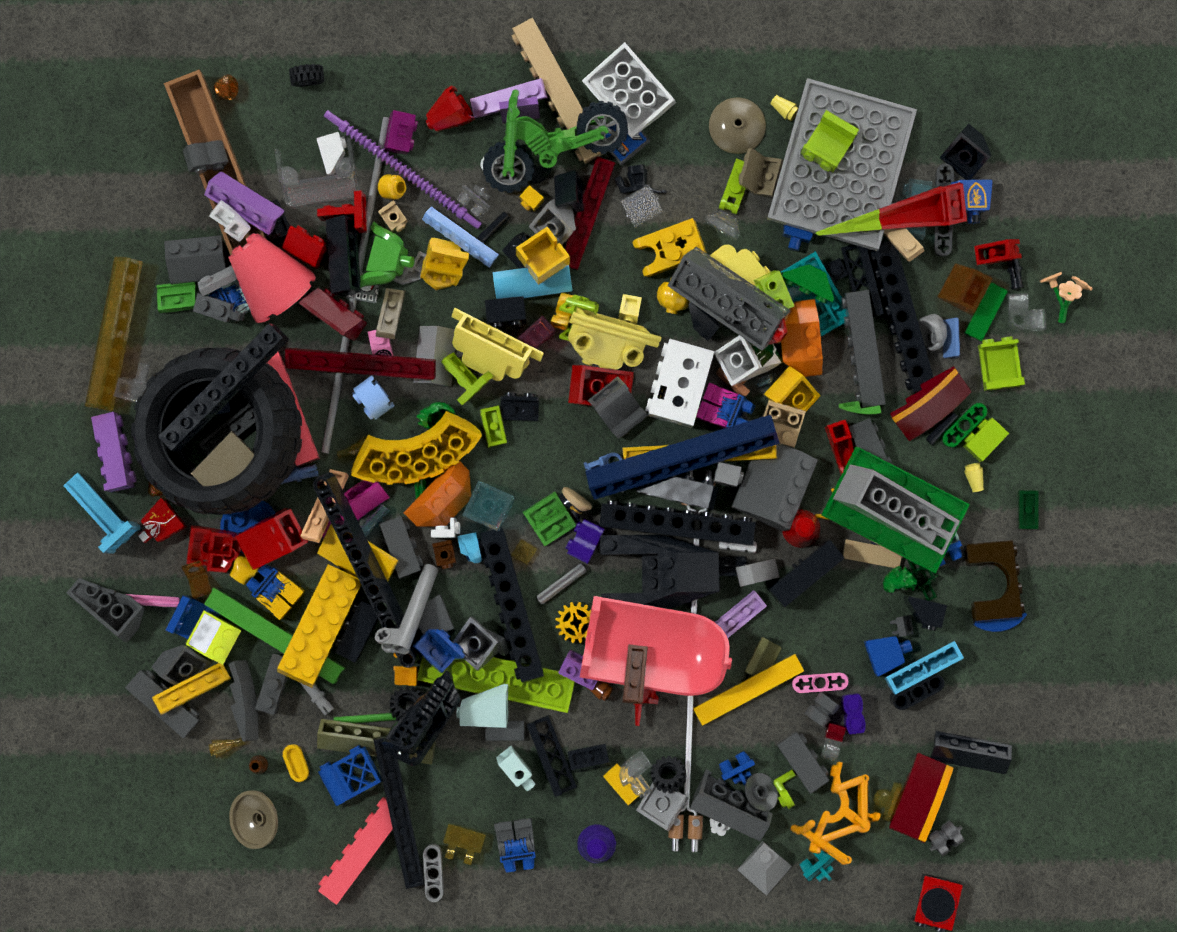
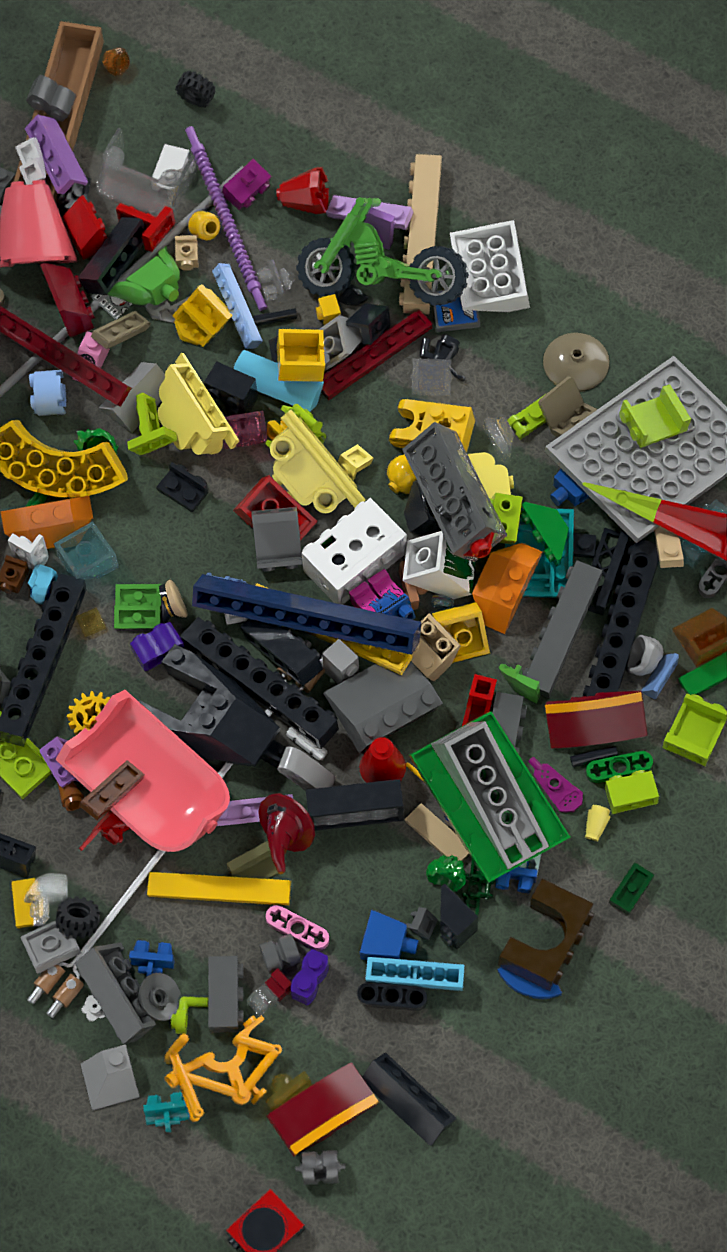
camera: 30 degrees right, 20 degrees down
(493, 426) = (144, 488): lime slope -> none
(561, 583) = (105, 673): light grey axle -> none
(770, 621) = (286, 827): none -> dark red piece
(786, 108) = (633, 369): light yellow cone -> none
(935, 469) = (560, 792): none -> magenta piece

